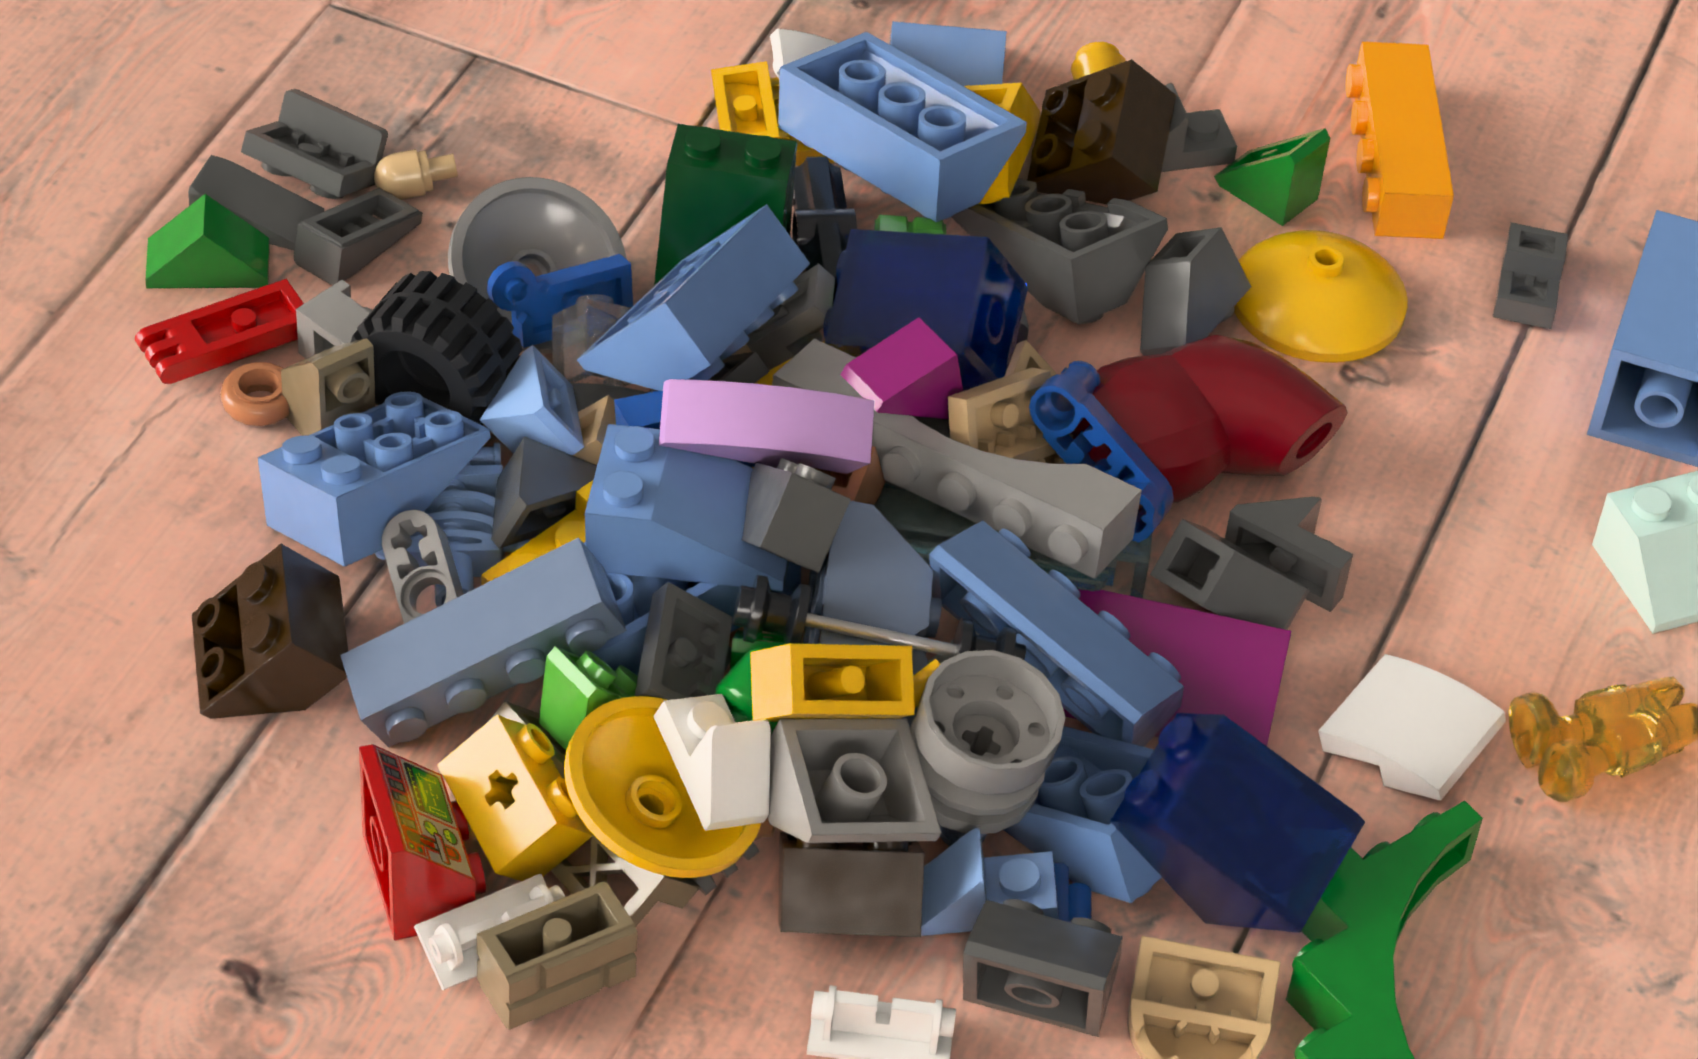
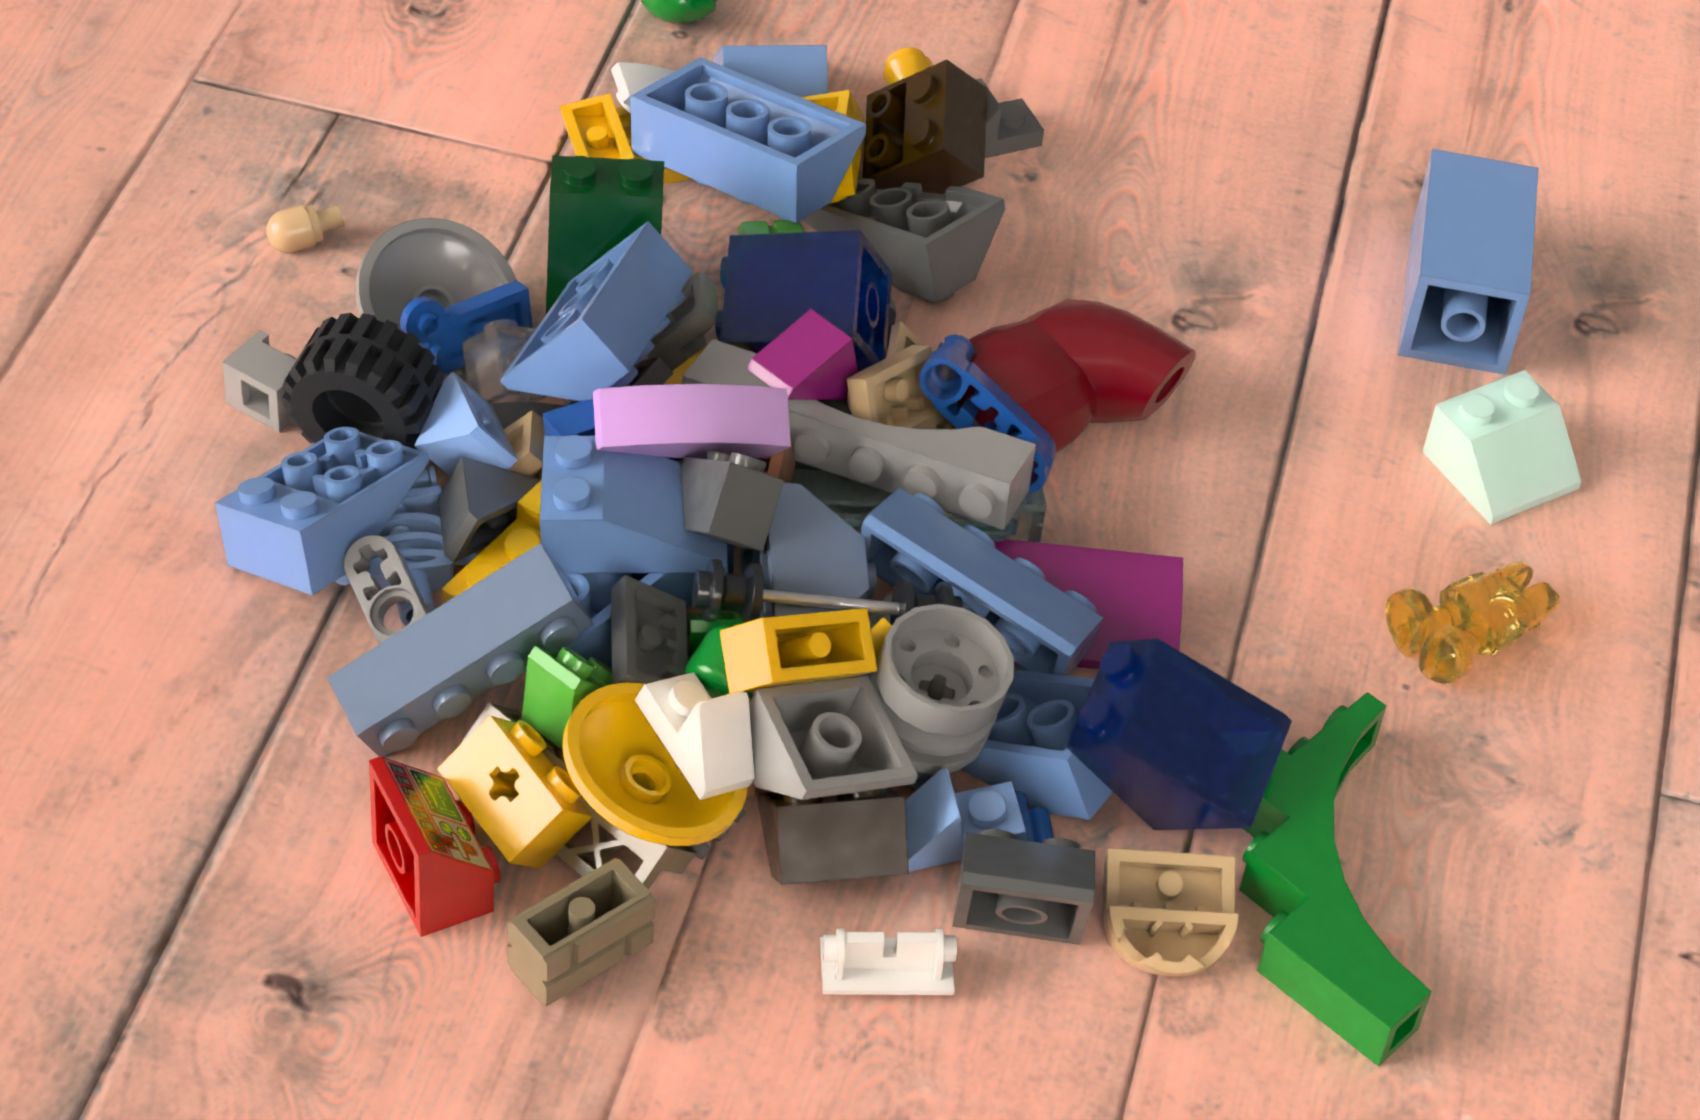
camera: 10 degrees left, 0 degrees up
(207, 250) = (123, 316): green slope -> none
(221, 332) = (152, 390): red hinge -> none
(254, 200) = (157, 272): dark grey slope -> none
(255, 410) = (198, 459): nougat piece -> none
(270, 638) = (254, 670): dark brown slope -> none
(318, 146) = (211, 209): dark grey bracket -> none
(329, 386) = (266, 430): dark tan slope -> none
(349, 237) = (253, 293): dark grey slope -> none
(452, 936) = (482, 925): white hinge -> none
(821, 214) = (691, 231): black piece -> none
(1189, 290) = (1030, 262): dark grey slope -> none
(1227, 578) = (1117, 517): dark grey slope -> none
(1279, 176) = (1086, 152): green slope -> none
(1285, 539) = (1156, 484): dark grey slope -> none
(1321, 296) = (1140, 256): yellow dish -> none
(1400, 140) = (1187, 110): light orange brick -> none
(1413, 726) = (1303, 630): white slope -> none
(1530, 275) = (1322, 219): dark grey slope -> none

